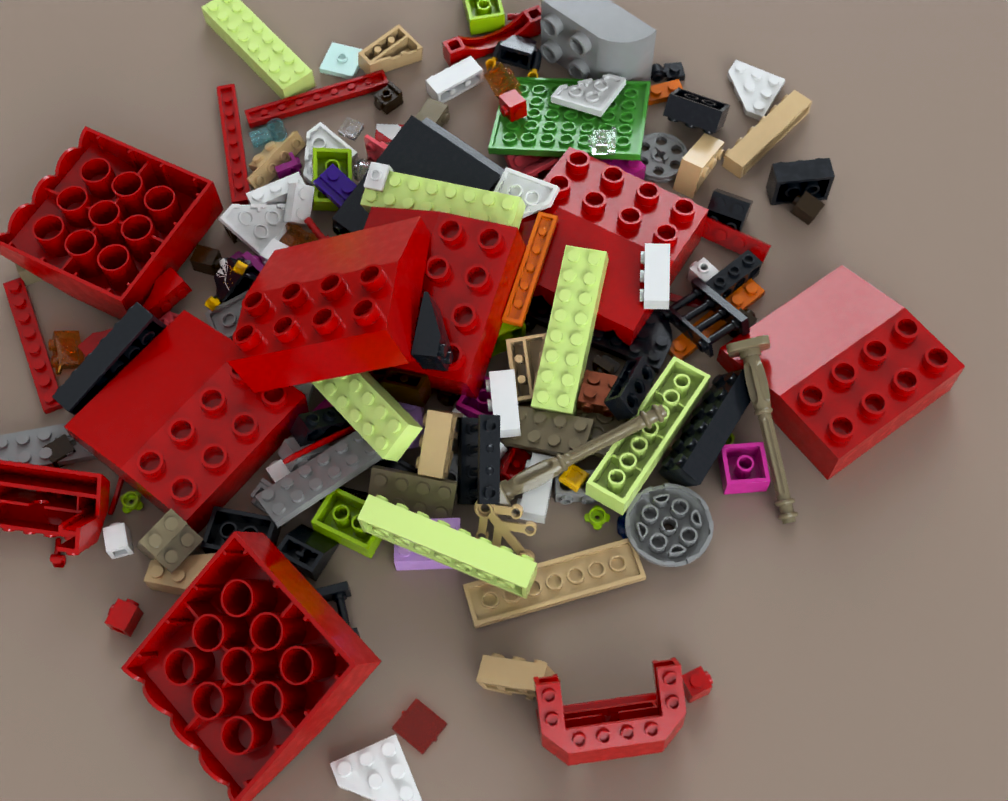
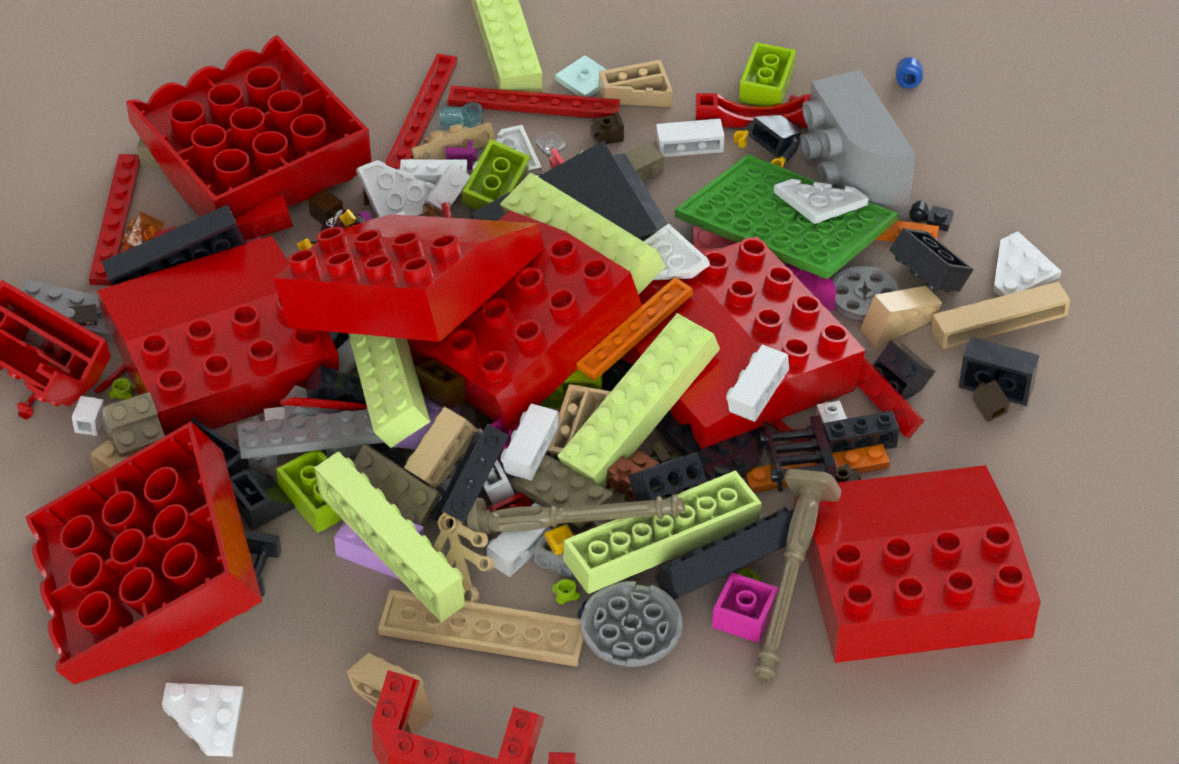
camera: 25 degrees right, 15 degrees down
(124, 616) = (54, 480): red brick -> none
(335, 185) = (491, 182): dark purple plate -> none
(377, 176) = (529, 181): white bracket -> none
(419, 726) = (270, 693): clear red piece -> none
(431, 343) = (480, 332): black slope -> none
(502, 80) = (737, 153): clear orange bracket -> none
(512, 105) = (727, 179): red brick -> none
(603, 141) = (795, 244): clear brick -> none

